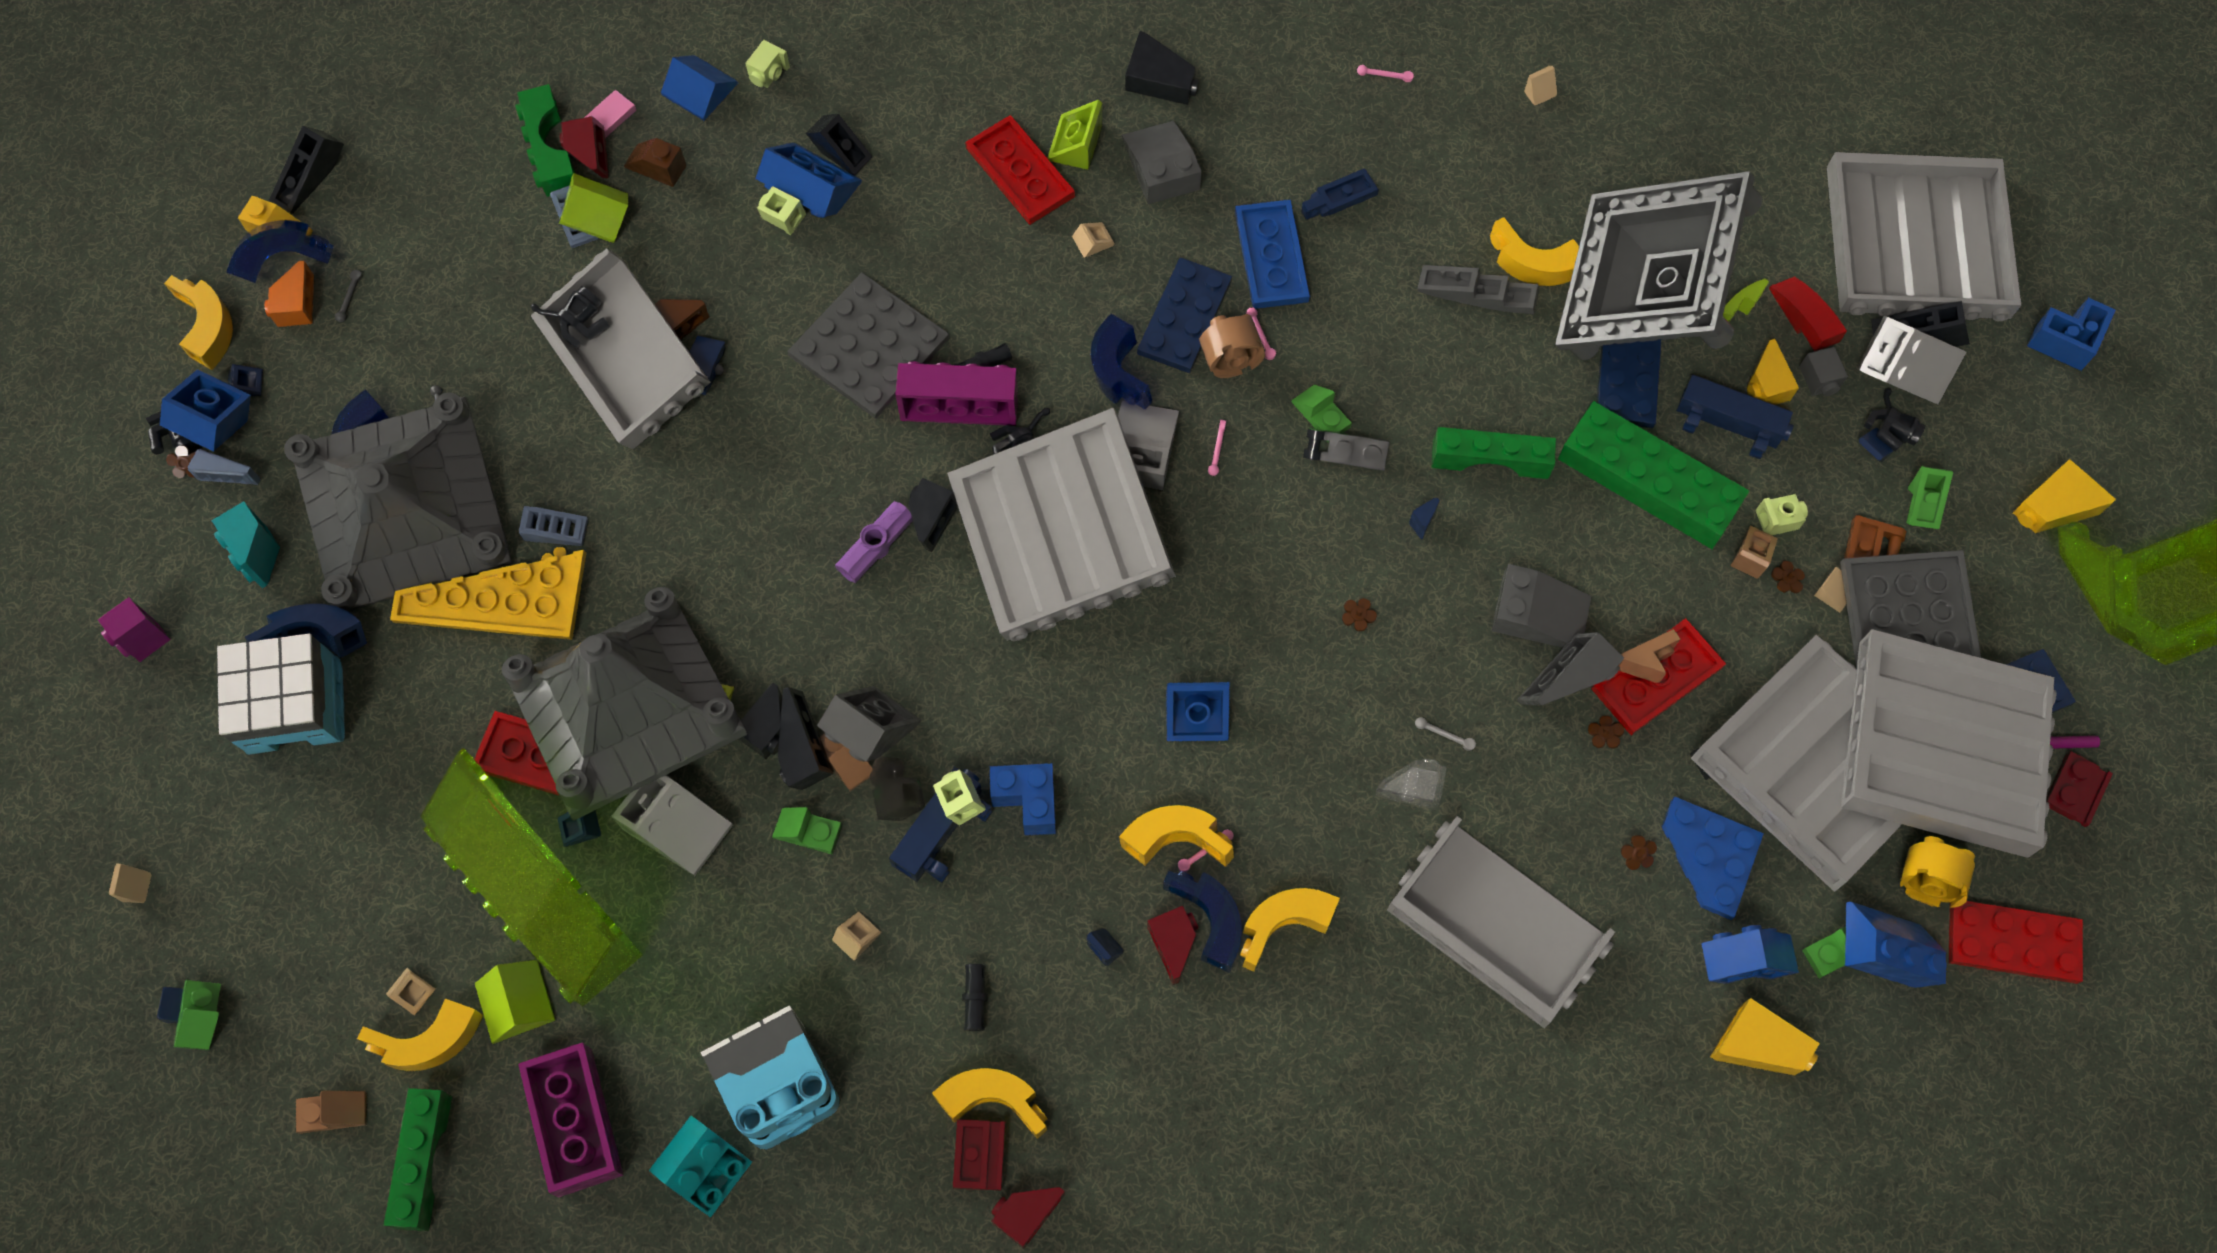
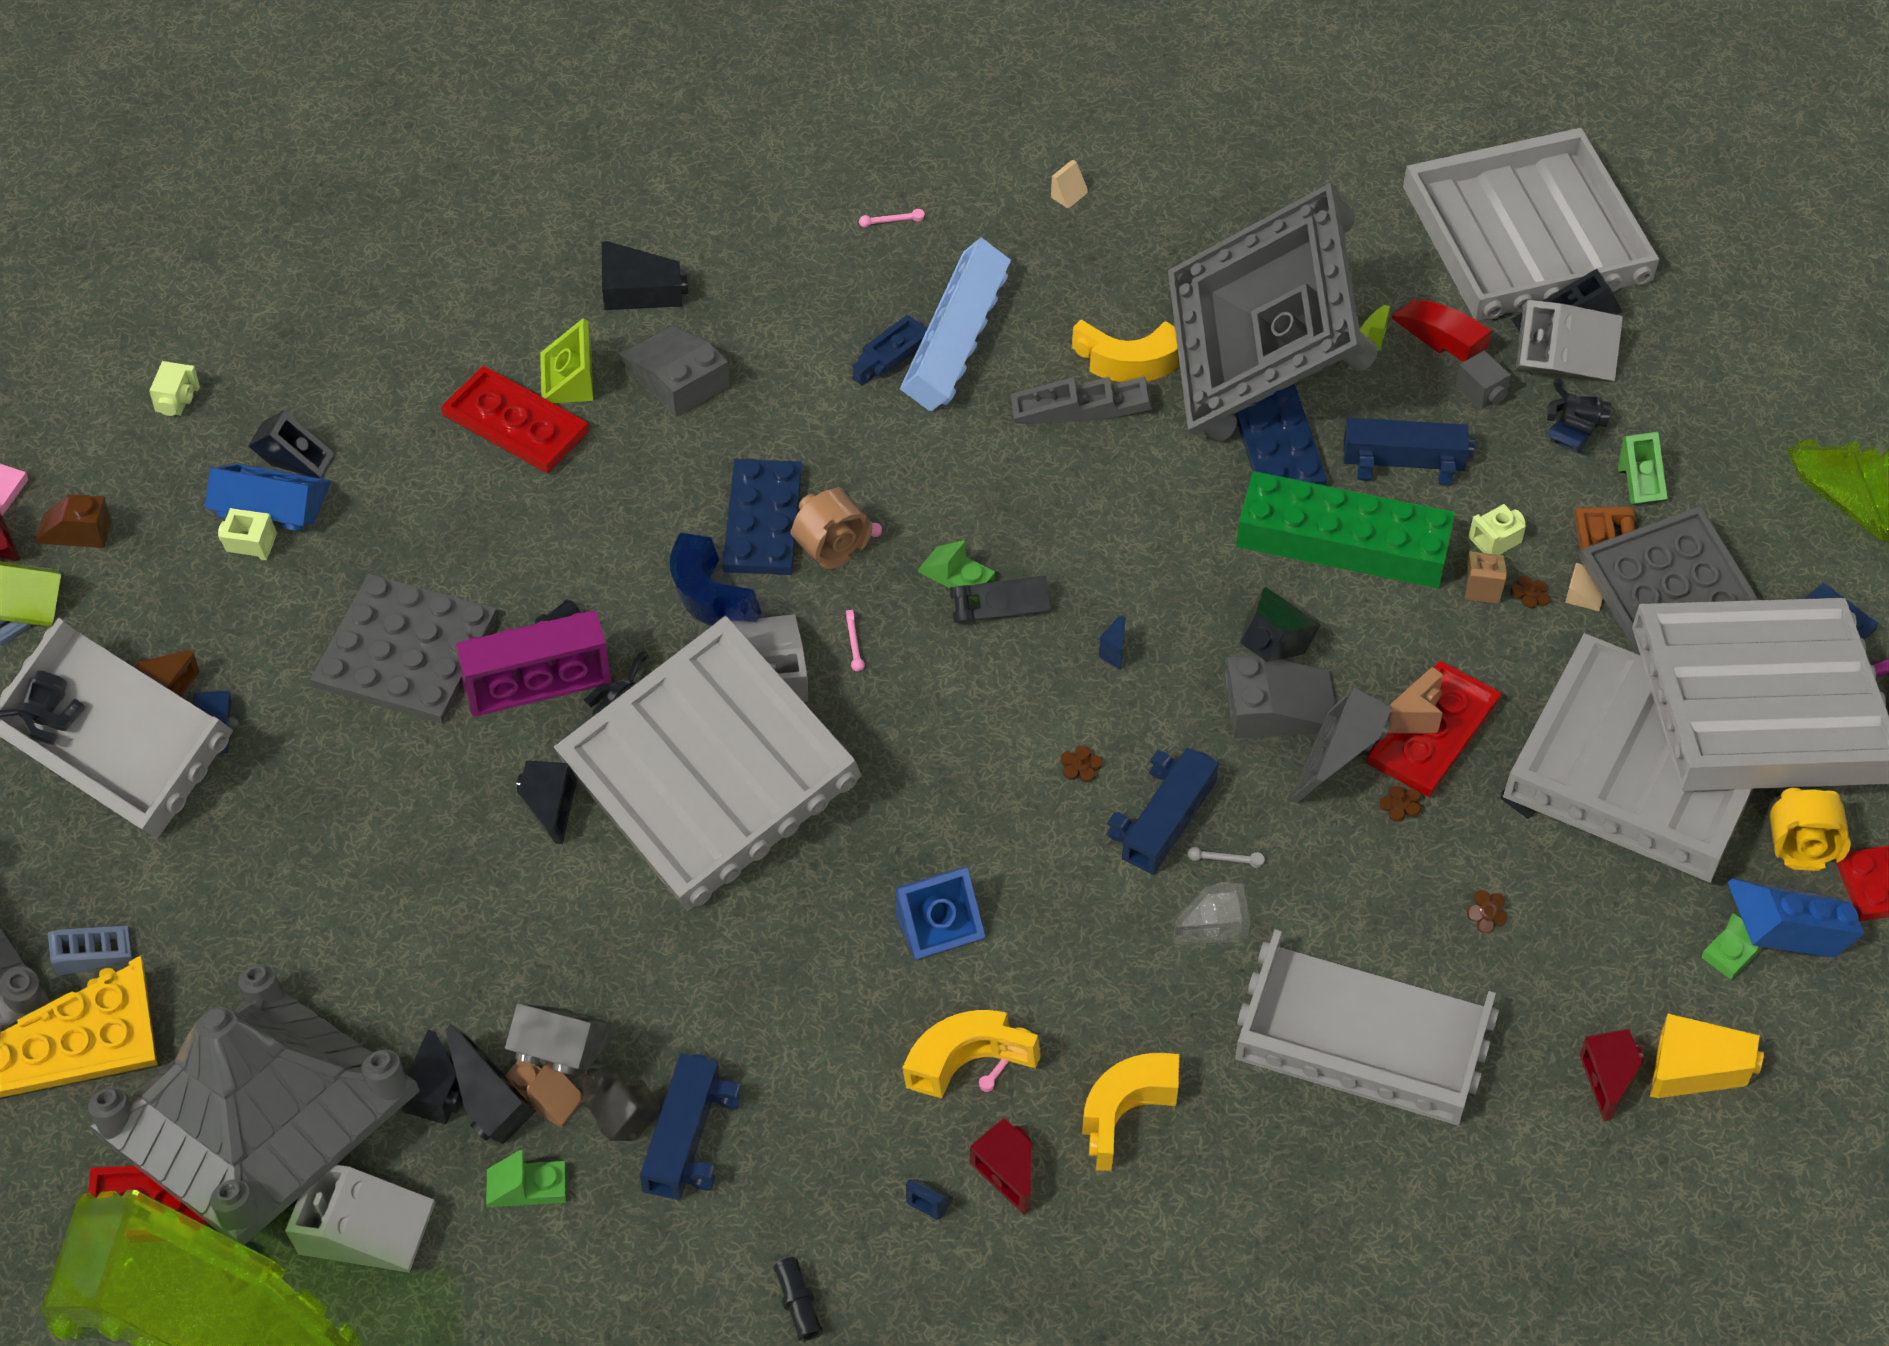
camera: 20 degrees left, 15 degrees down
(696, 85) = (94, 434): blue slope -> none
(855, 935) = (628, 1280): tan slope -> none
(863, 555) = (485, 864): medium lavender piece -> none
(958, 797) = (701, 1078): yellowish green brick -> none
(1030, 787) = (778, 1053): blue brick -> none
(1092, 238) = (625, 468): tan slope -> none
(1221, 911) = (1045, 1112): clear blue arch -> none
(1272, 254) = (838, 427): blue plate -> none
(1400, 190) = (956, 325): none -> light blue brick
(1413, 680) = (1168, 812): none -> dark blue brick
(1522, 453) = (1127, 560): green arch -> none
(1559, 548) = (1277, 628): none -> black slope
(1686, 1025) = (1611, 1067): none -> dark red slope
(1712, 854) = (1565, 888): blue plate -> none
(1749, 955) = (1646, 970): blue brick -> none
(1772, 377) = (1432, 398): yellow slope -> none
(2063, 499) = (1776, 429): yellow slope -> none
(2072, 338) = (1723, 276): blue brick -> none

